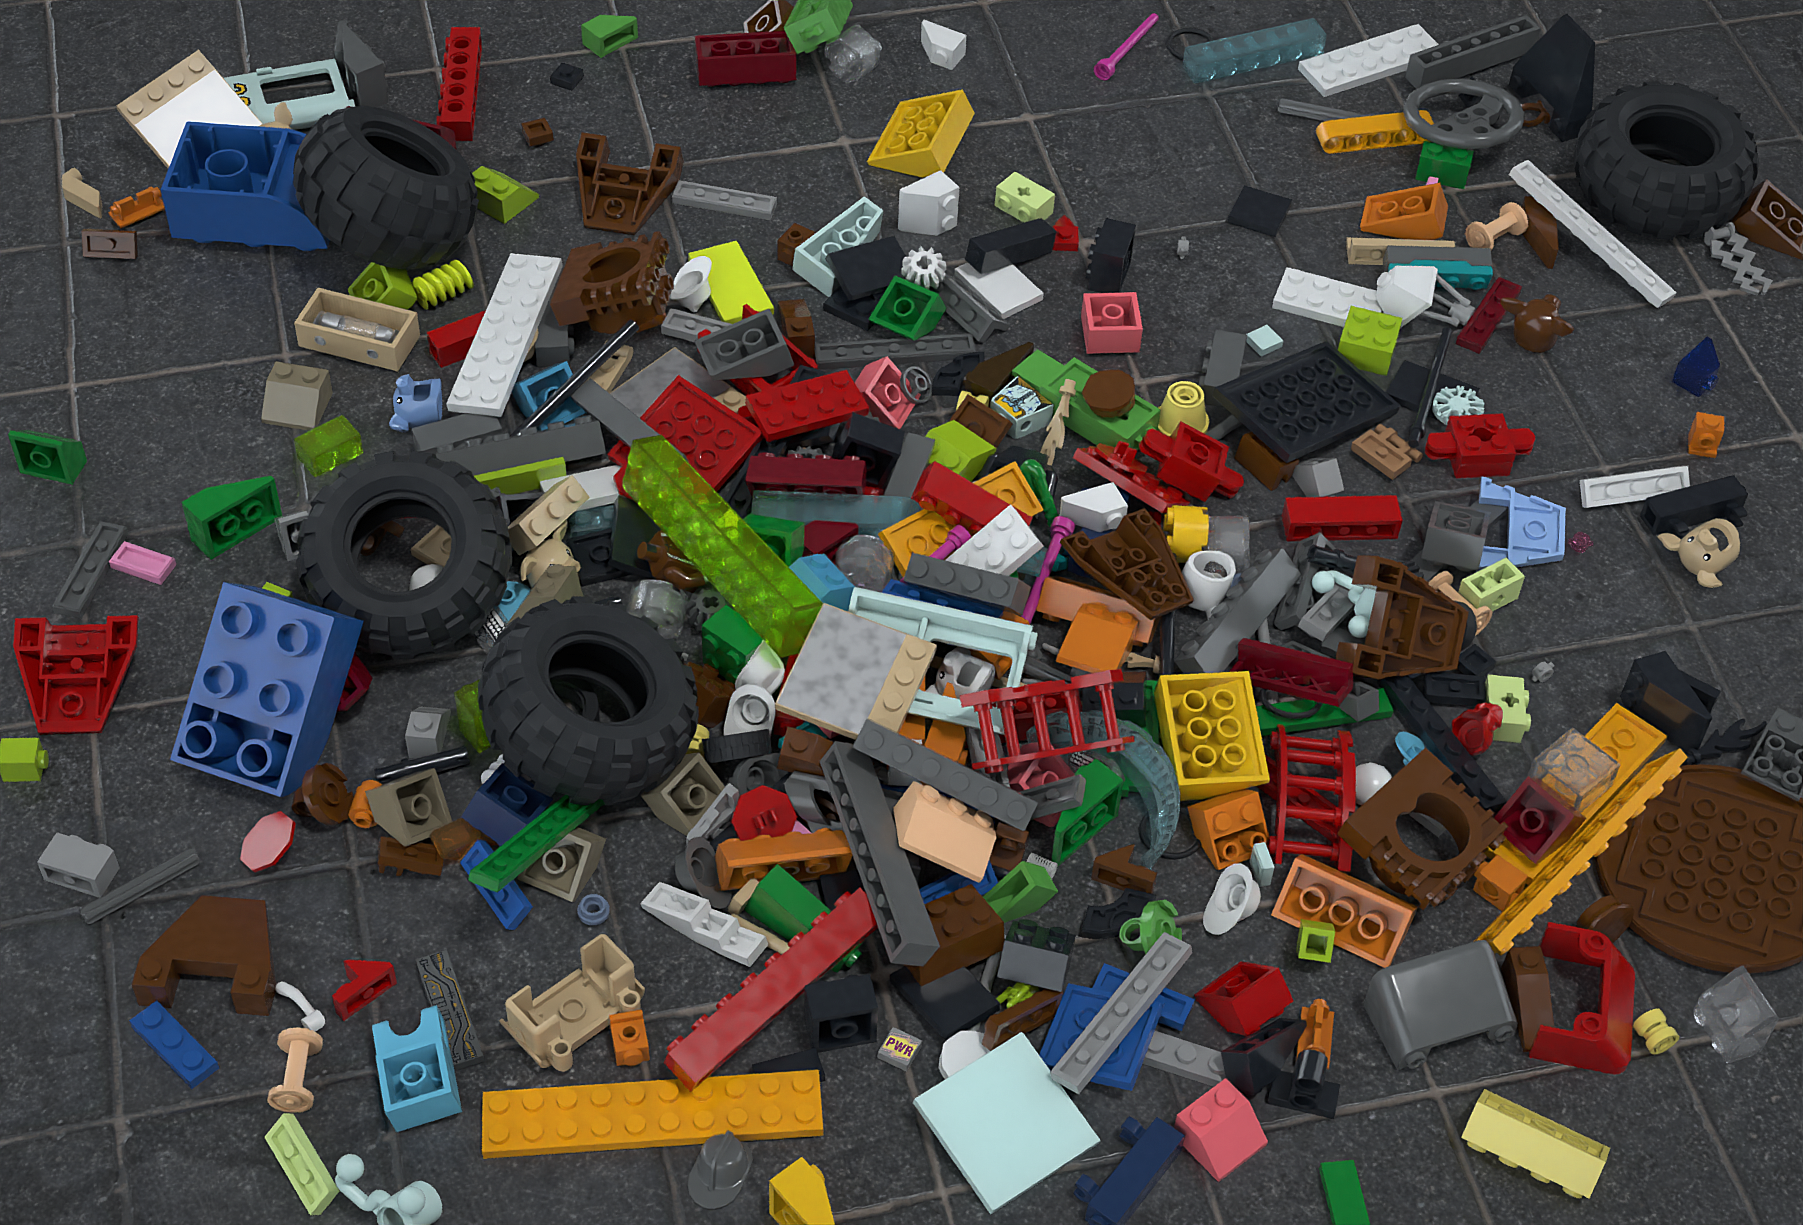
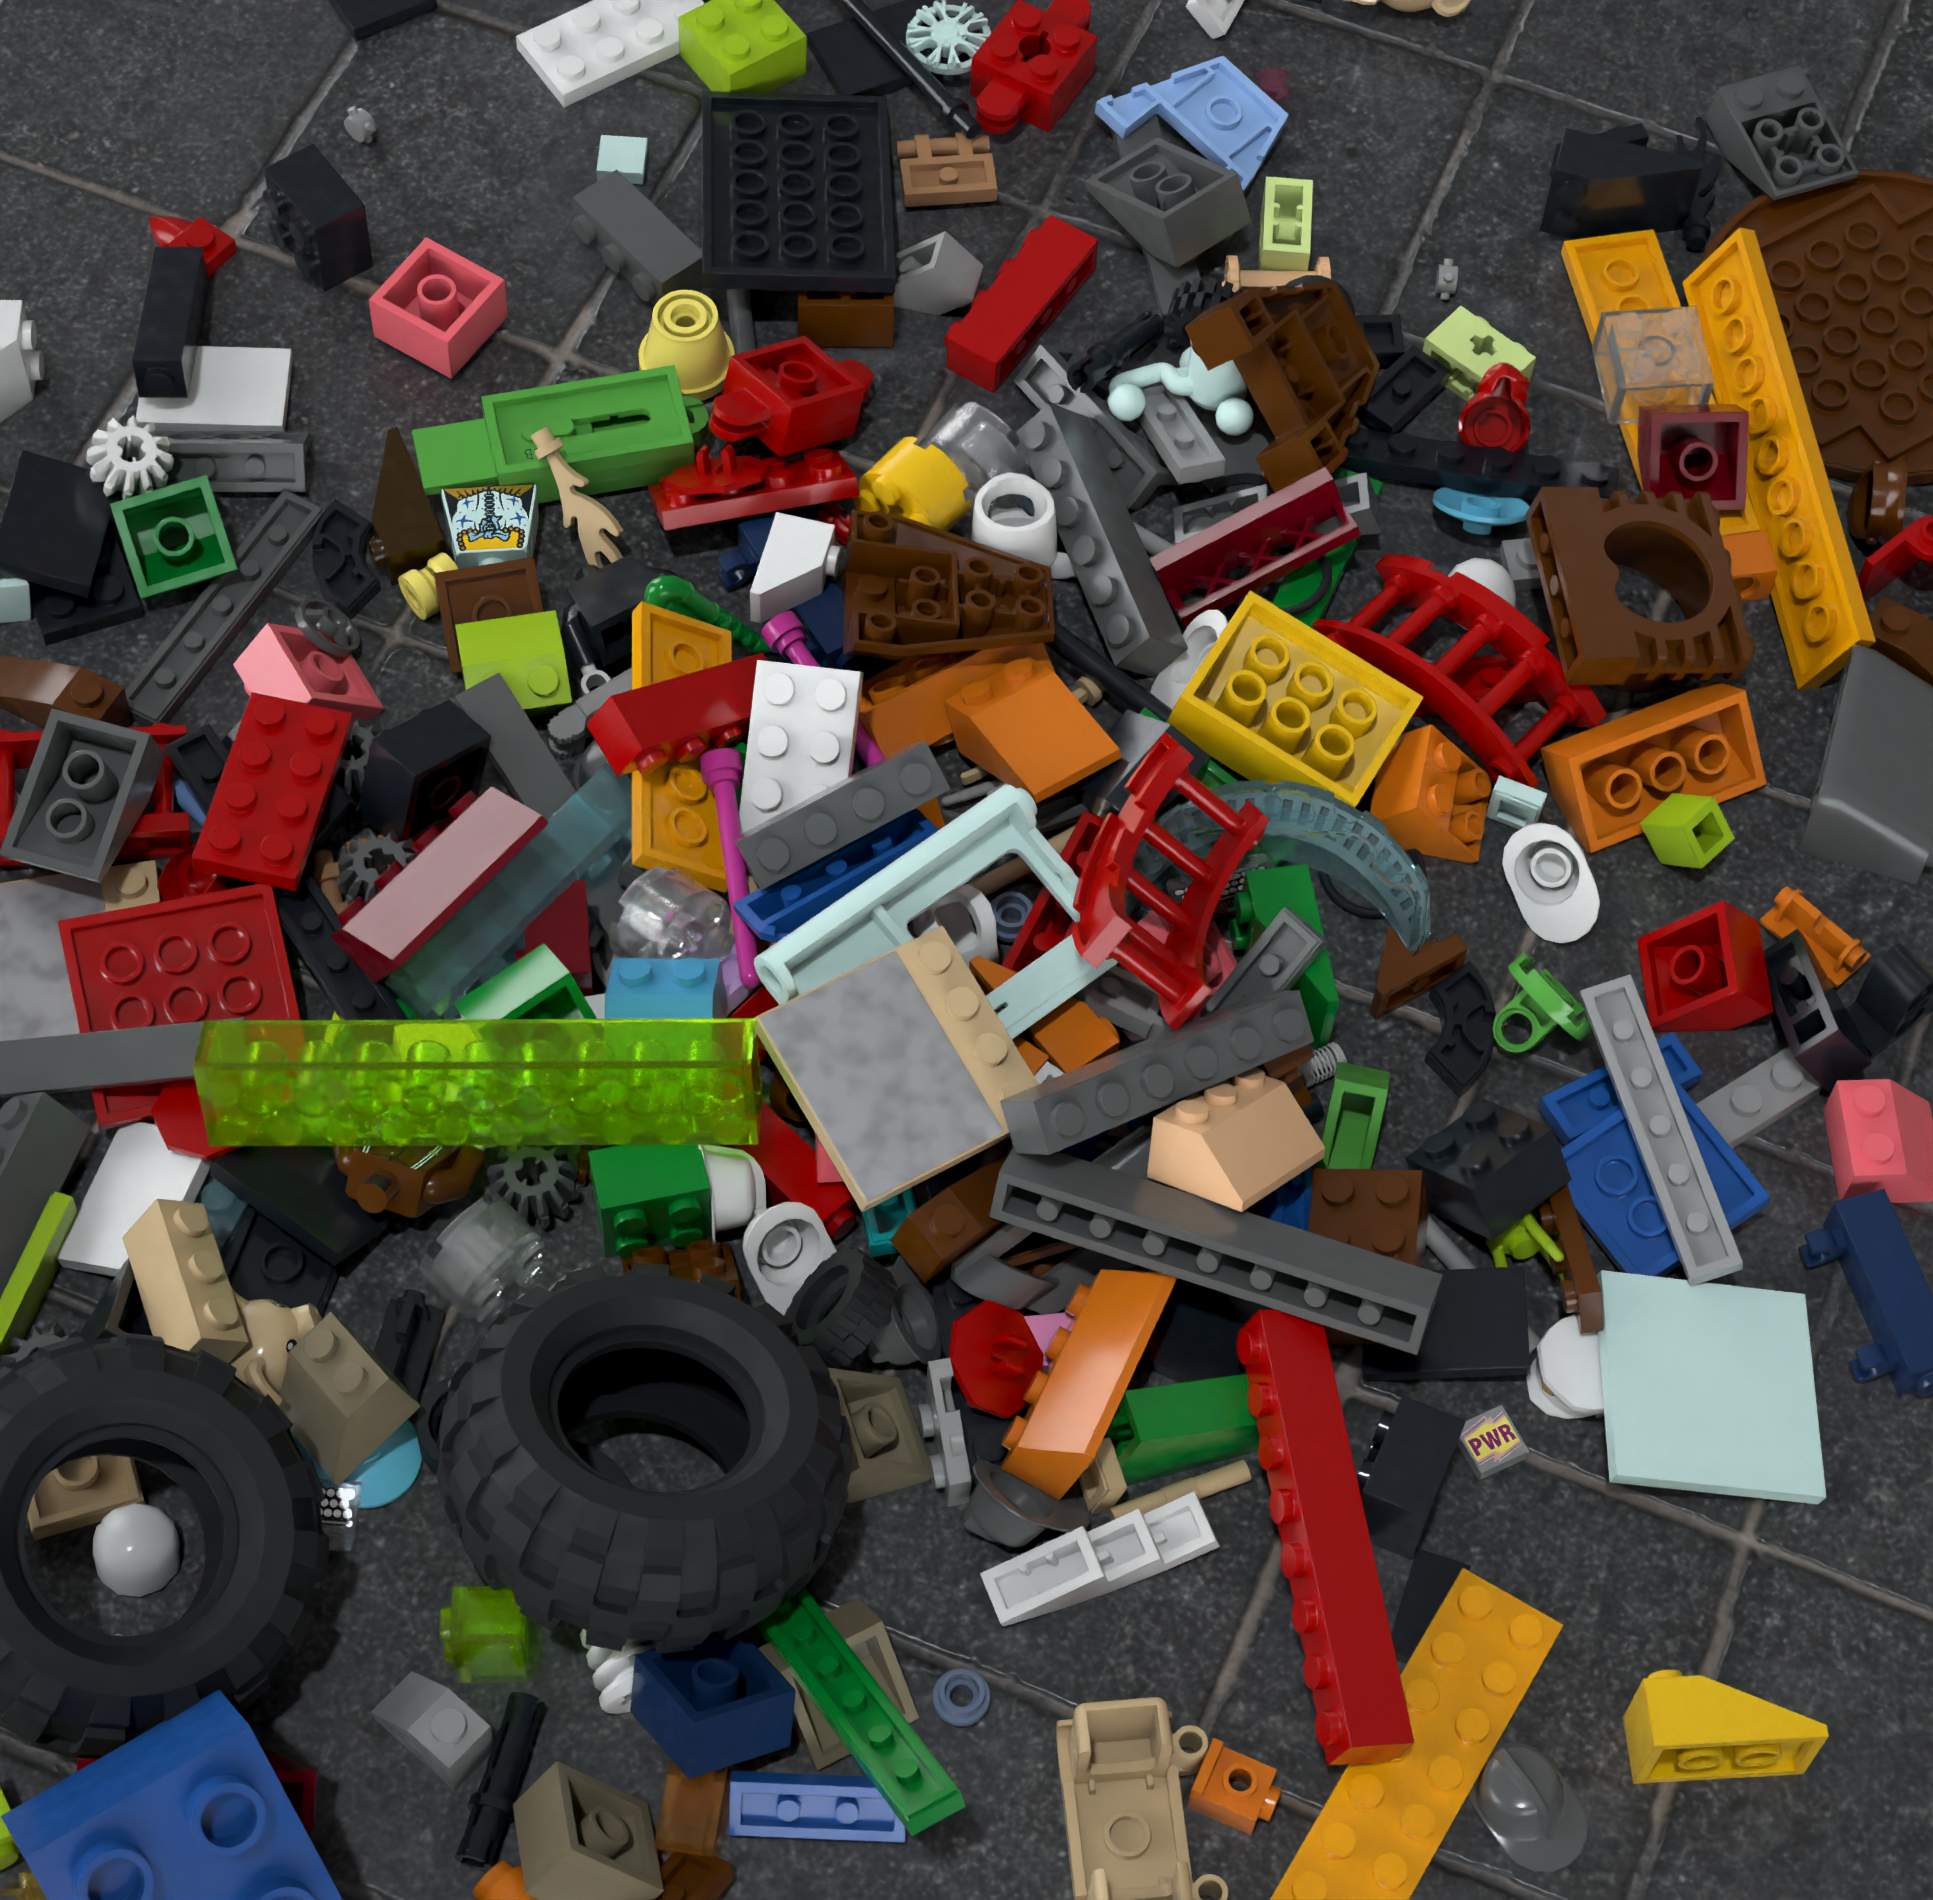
camera: 55 degrees left, 10 degrees up
(1024, 198) = (83, 242): yellowish green brick -> none
(1110, 393) = (606, 399): reddish brown hat -> none

